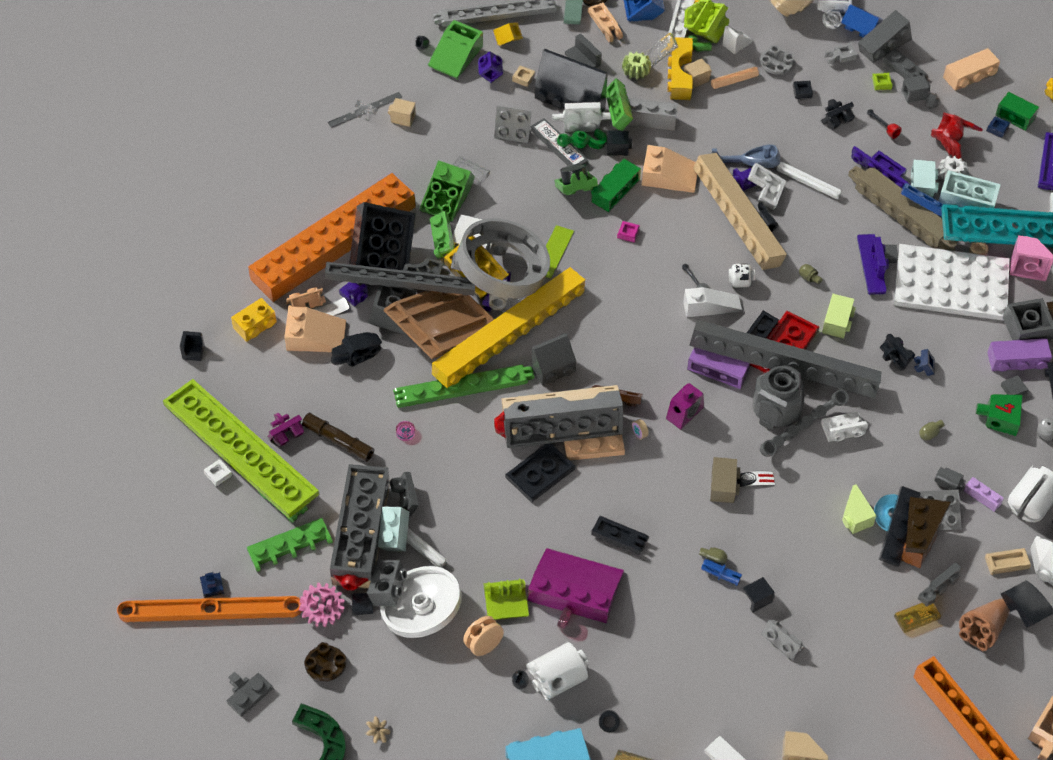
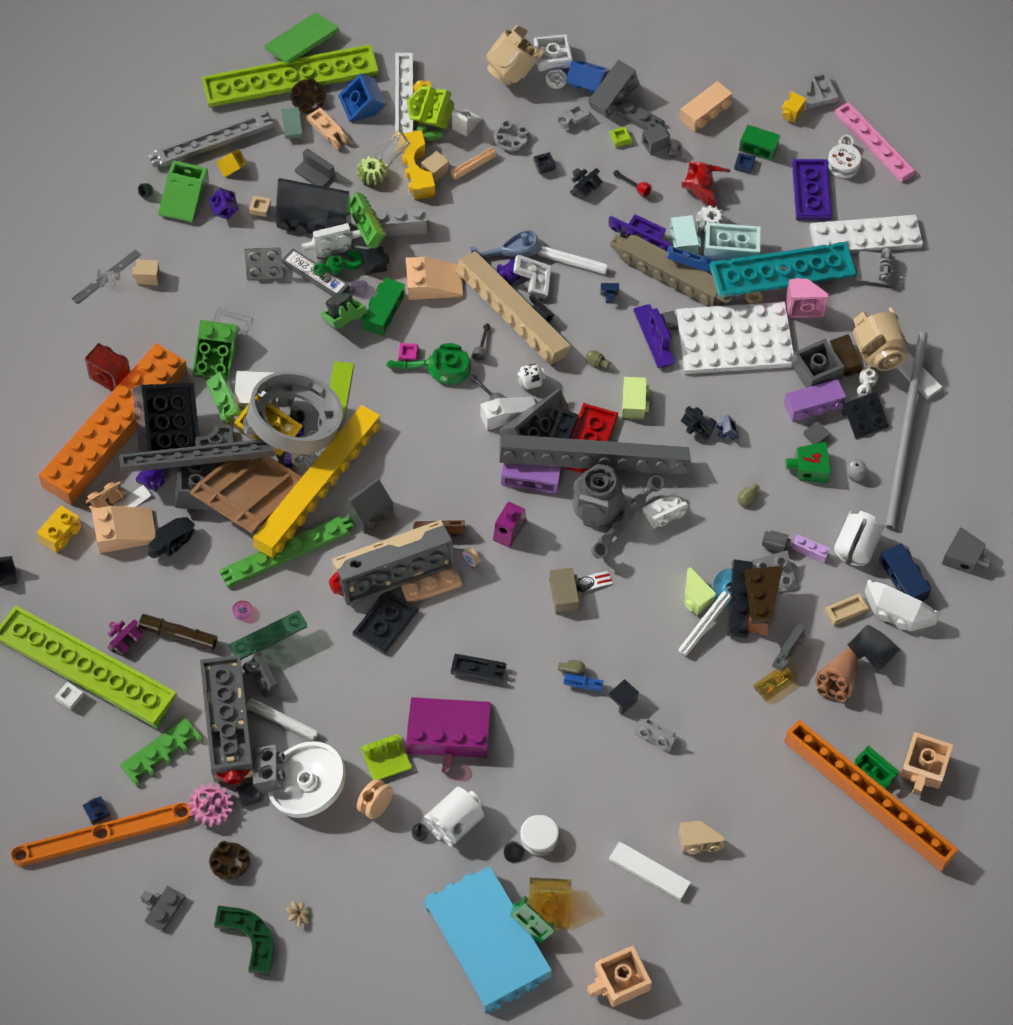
camera: 15 degrees left, 5 degrees up
(339, 183) = (106, 366): none -> clear red brick
(393, 529) = (260, 713): light aqua brick -> none
(422, 457) = (268, 635): none -> clear green bracket
(508, 263) = (299, 413): none -> black hinge
(597, 166) = (359, 288): none -> clear purple piece
(639, 710) = (539, 835): none -> white head
(661, 249) = (446, 364): none -> green piece
(697, 245) = (479, 353): none -> dark grey hinge
(740, 314) = (537, 419): none -> dark grey wedge
(837, 213) = (609, 290): none -> dark blue tile
(858, 542) = (704, 623): none -> white axle
(1005, 723) = (876, 767): none -> green hinge

